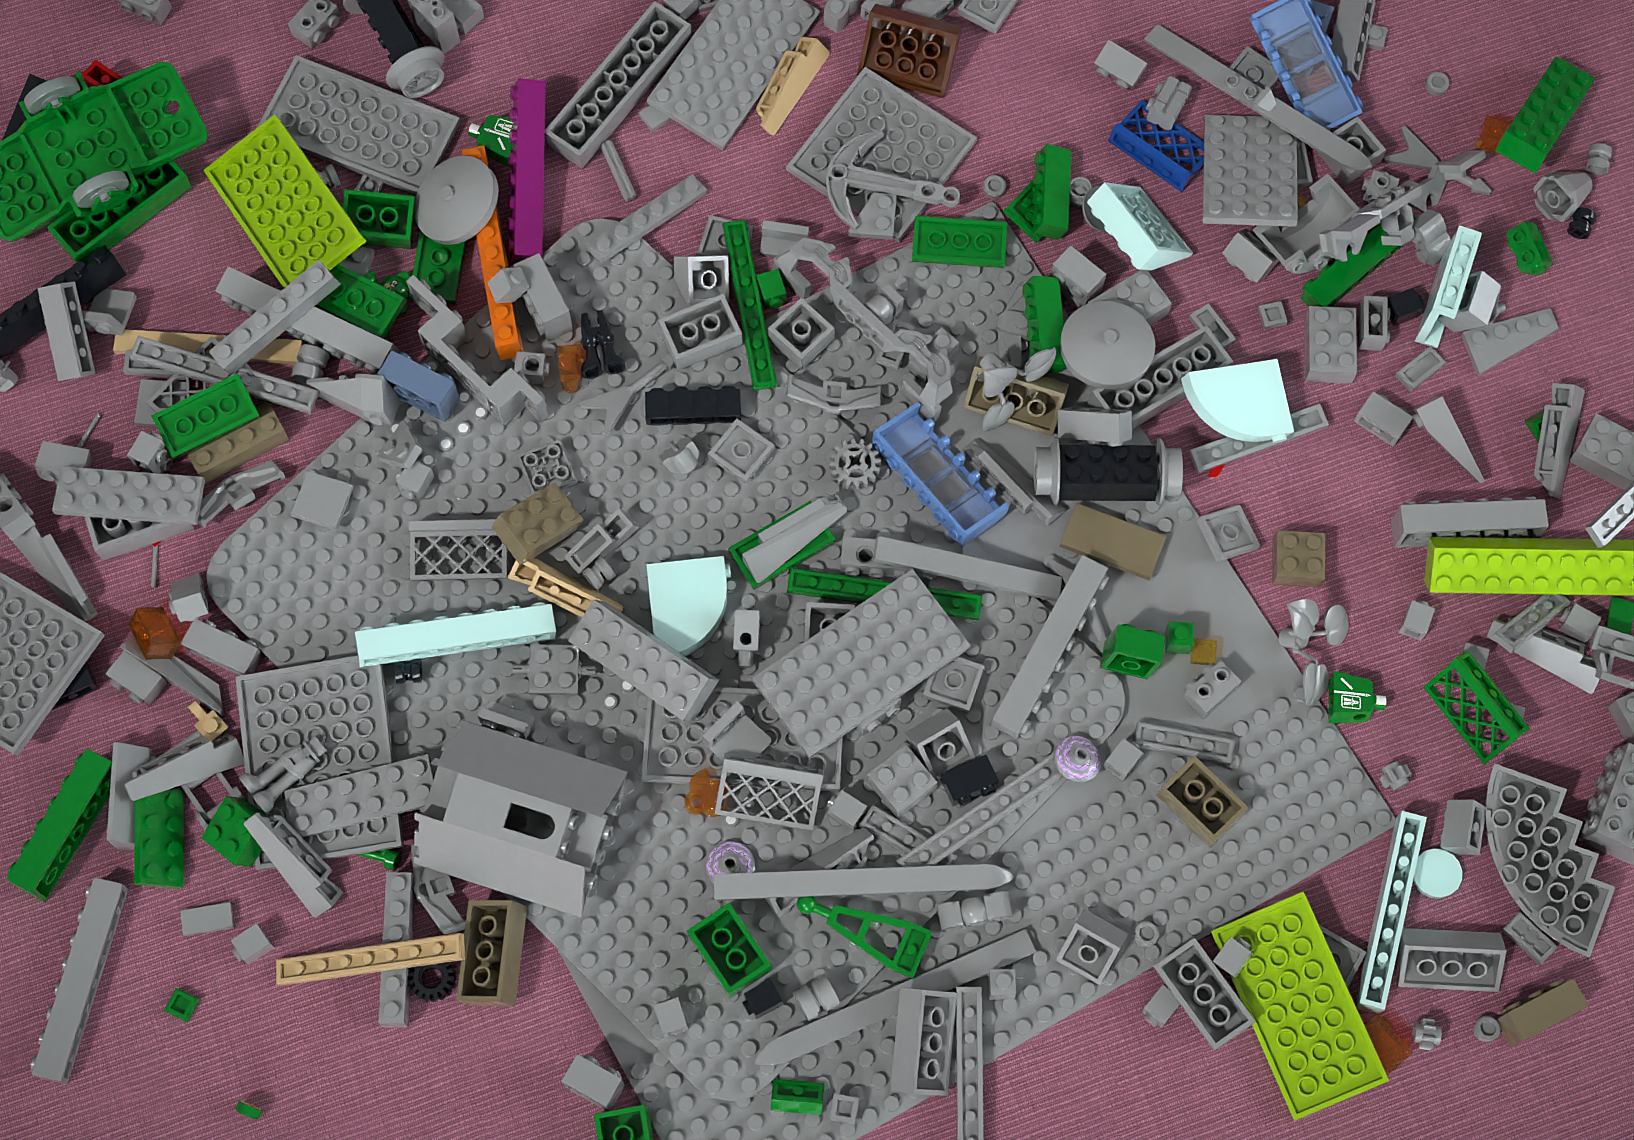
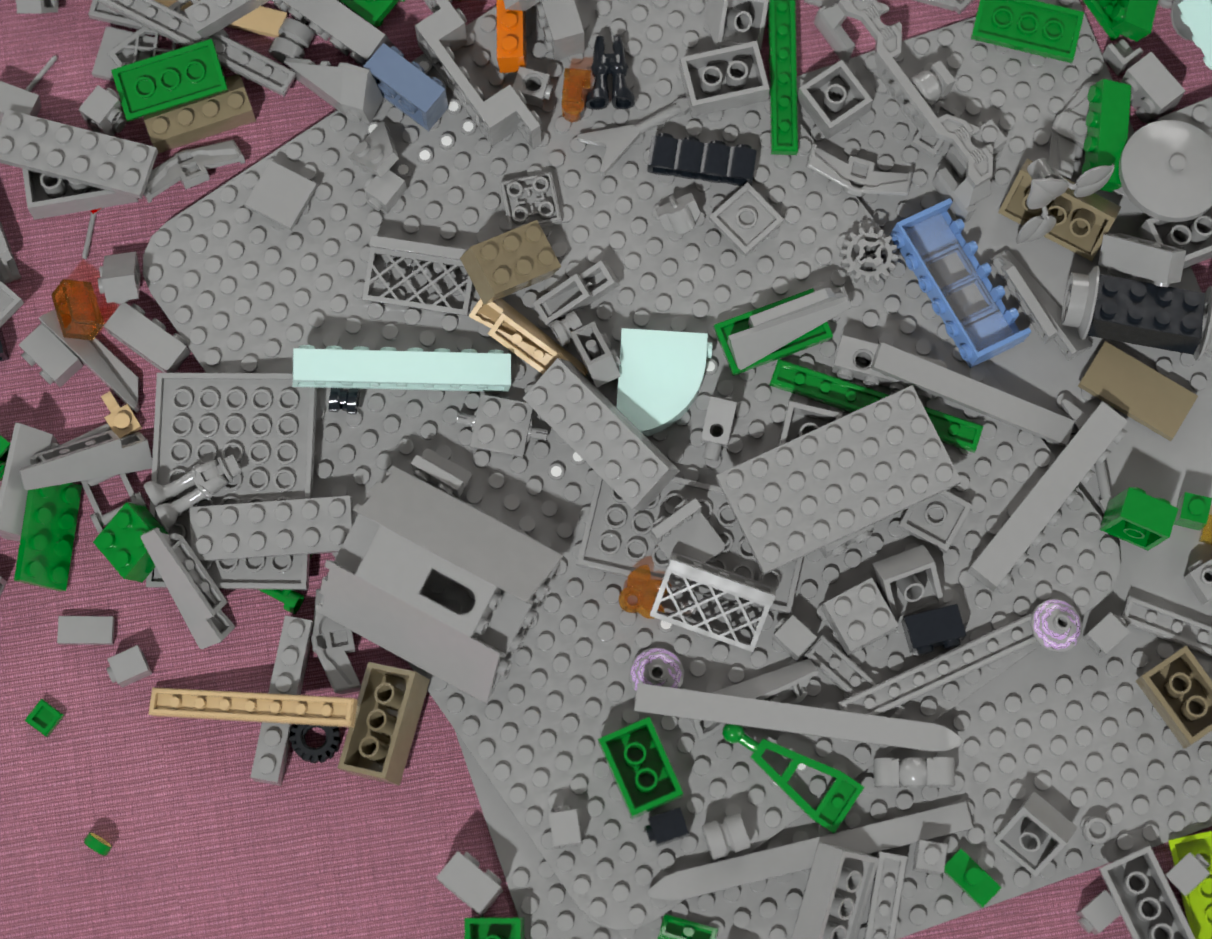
camera: 10 degrees right, 5 degrees up
(627, 591) = (595, 354): none -> light grey brick
(771, 289) = (810, 43): green brick -> none
(1042, 996) = (971, 878): none -> green tile
(1046, 255) = (1121, 56): none -> light grey panel

